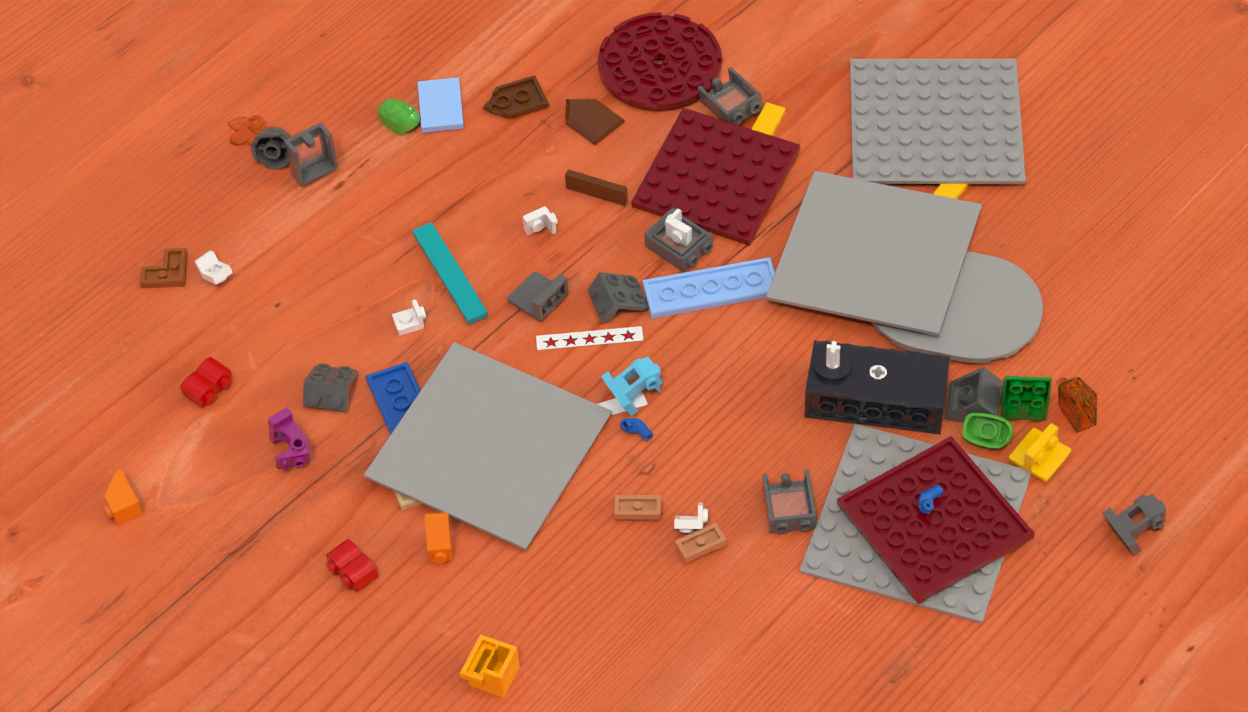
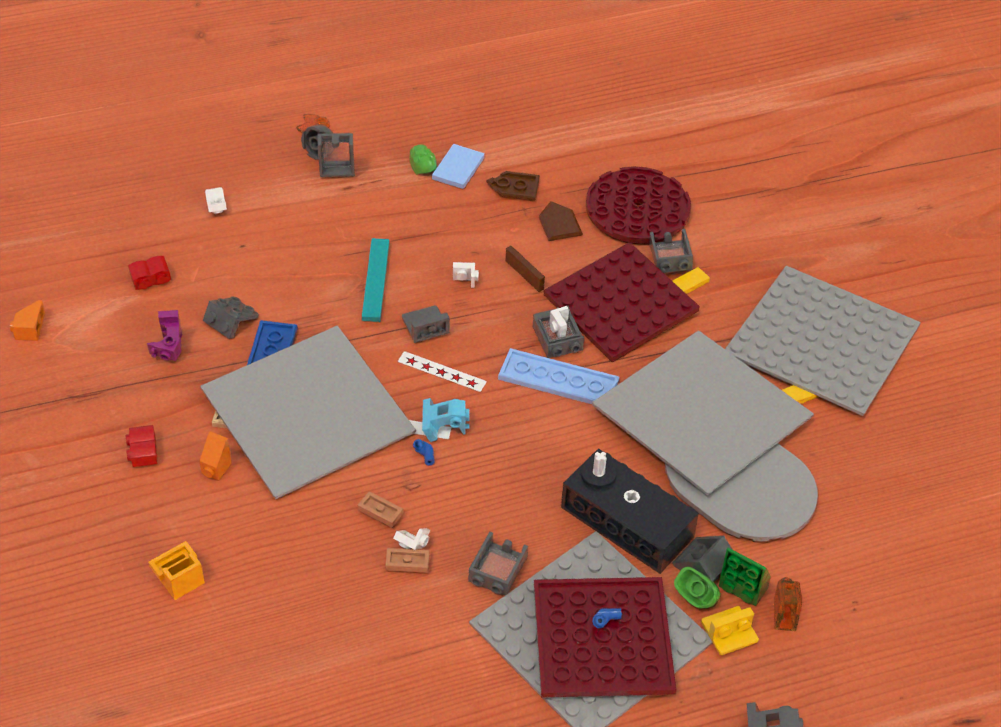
camera: 25 degrees right, 5 degrees down
(170, 274) = (187, 193): dark orange tile -> none
(410, 319) = (322, 297): white bracket -> none
(616, 292) = (484, 348): dark grey bracket -> none

